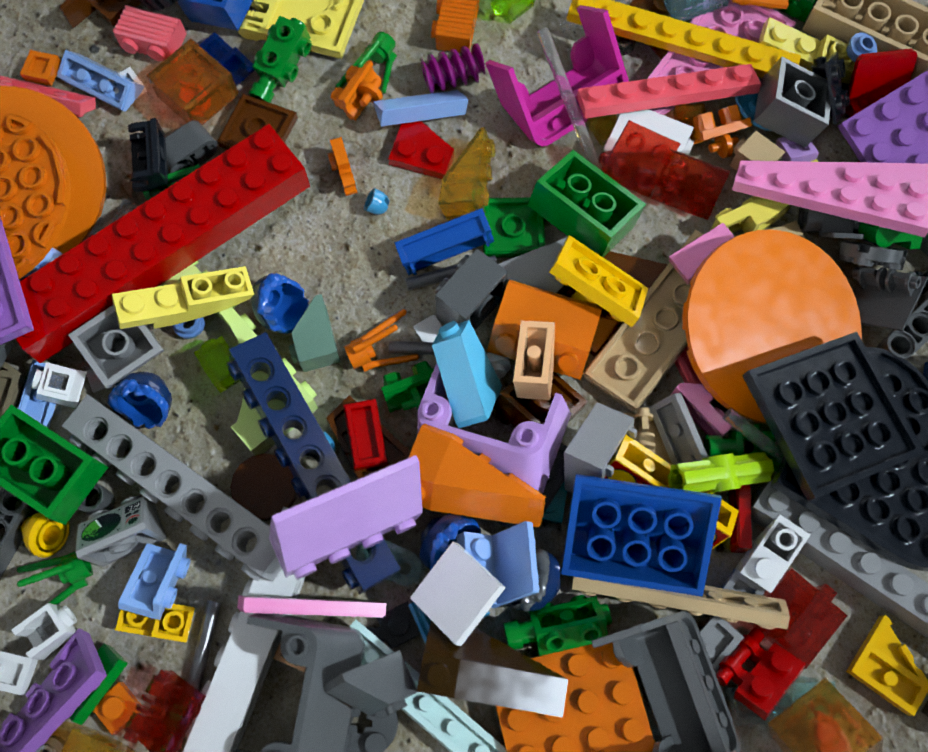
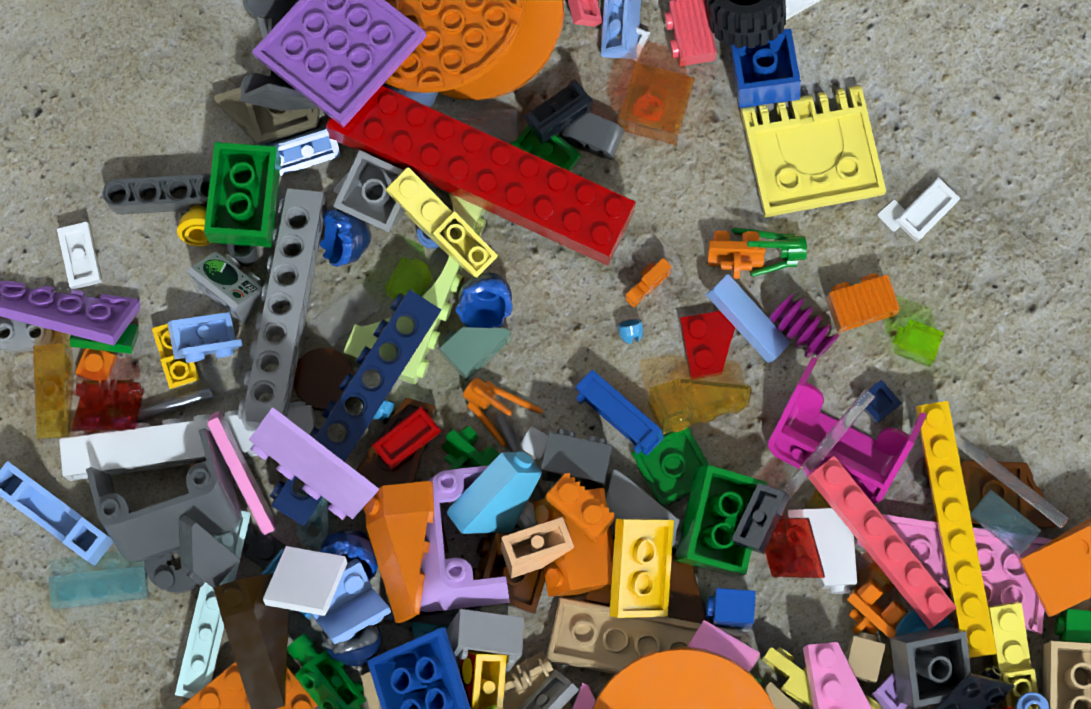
camera: 65 degrees right, 5 degrees up
(47, 629) = (127, 277): white window -> none
(59, 384) = (321, 163): white window -> none
(67, 568) = (177, 264): green plant -> none
(216, 437) = (344, 314): none -> clear tile
(229, 58) = (703, 113): clear blue slope -> none
(253, 115) = (649, 181): reddish brown plate -> none
(288, 52) = (730, 167): green brick -> none
(433, 276) = (597, 431): flat silver bar -> none
(521, 299) = (580, 507): none -> orange brick
(536, 50) = (883, 403): none -> dark blue plate
(606, 163) = (760, 518): none -> black plate
(668, 230) = (731, 608): none -> blue brick
(689, 184) = (792, 607): clear red hinge -> none

